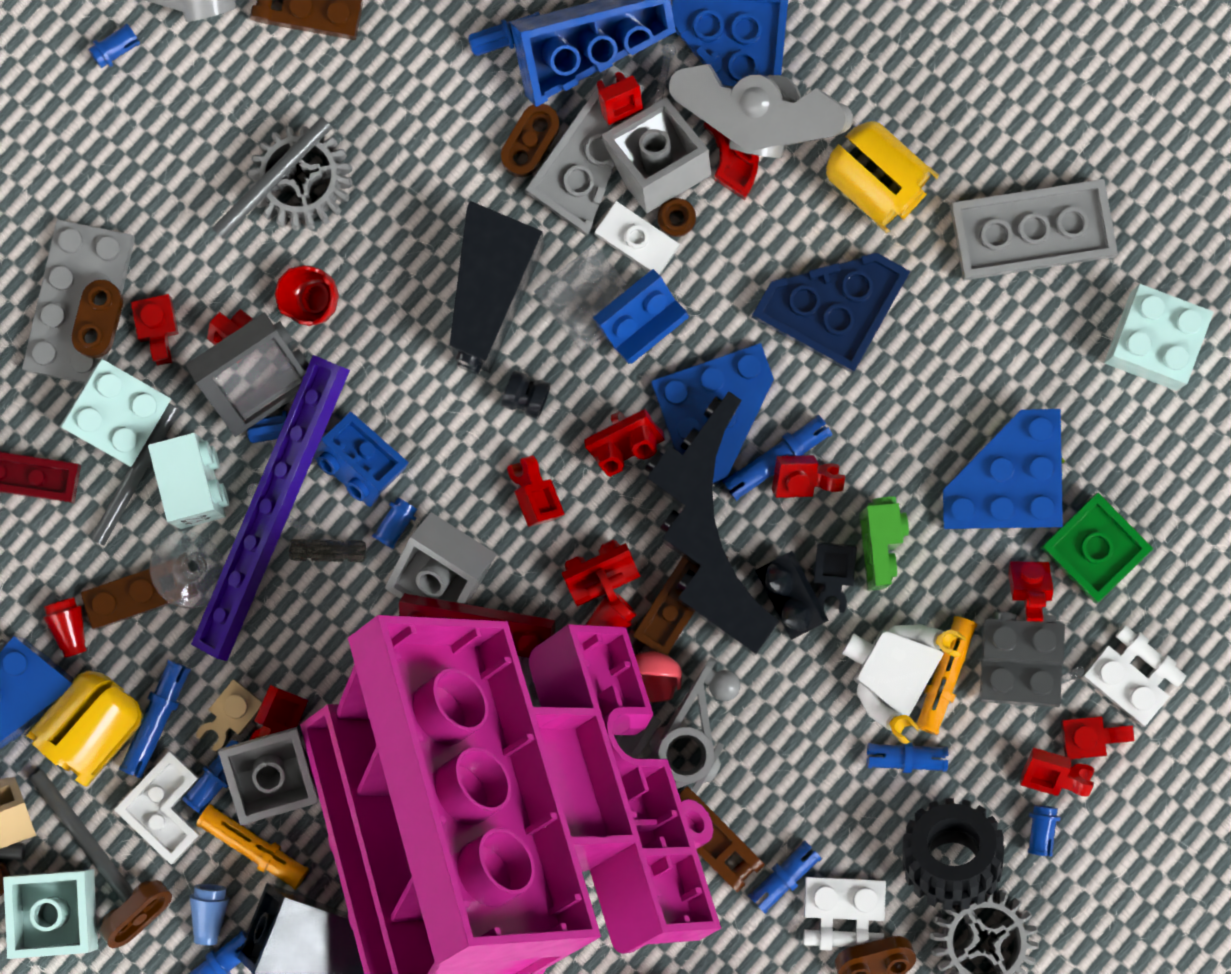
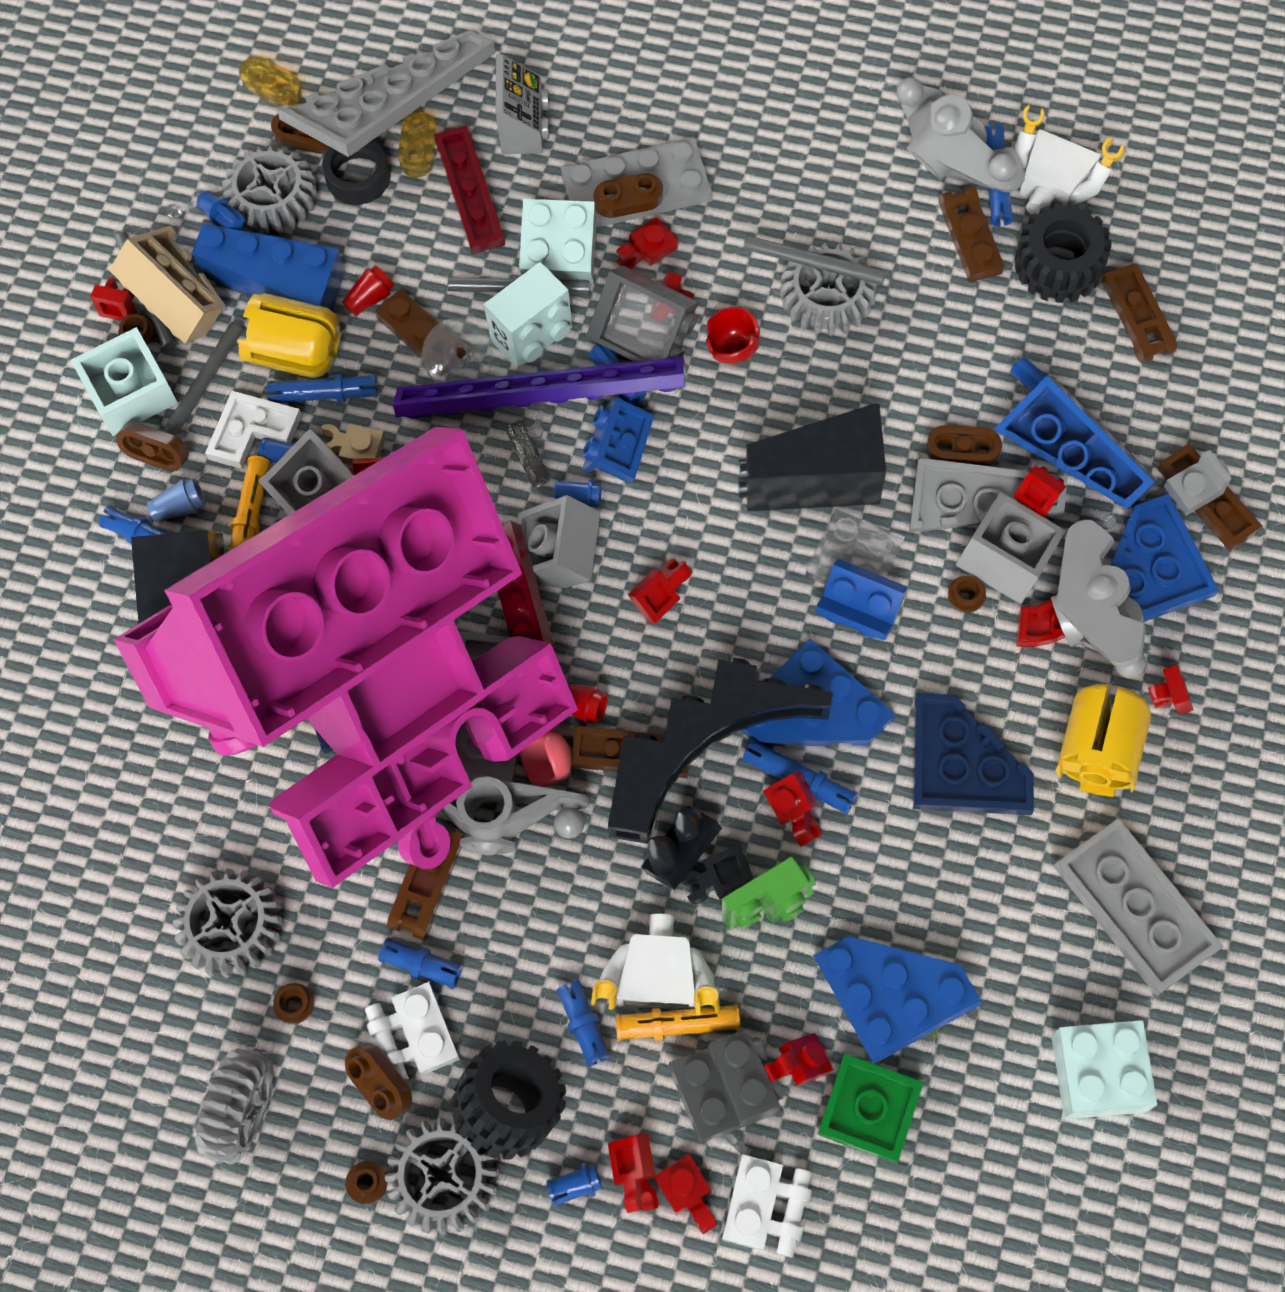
camera: 70 degrees right, 15 degrees down
(113, 46) = (856, 112): blue pin -> none
(525, 394) = (742, 543): black wheel -> none
(600, 574) = (616, 673): red hips -> none
(624, 439) = (743, 635): red hips -> none
(636, 239) = (928, 571): white plate -> none
(861, 88) = (1172, 692): none -> red tile

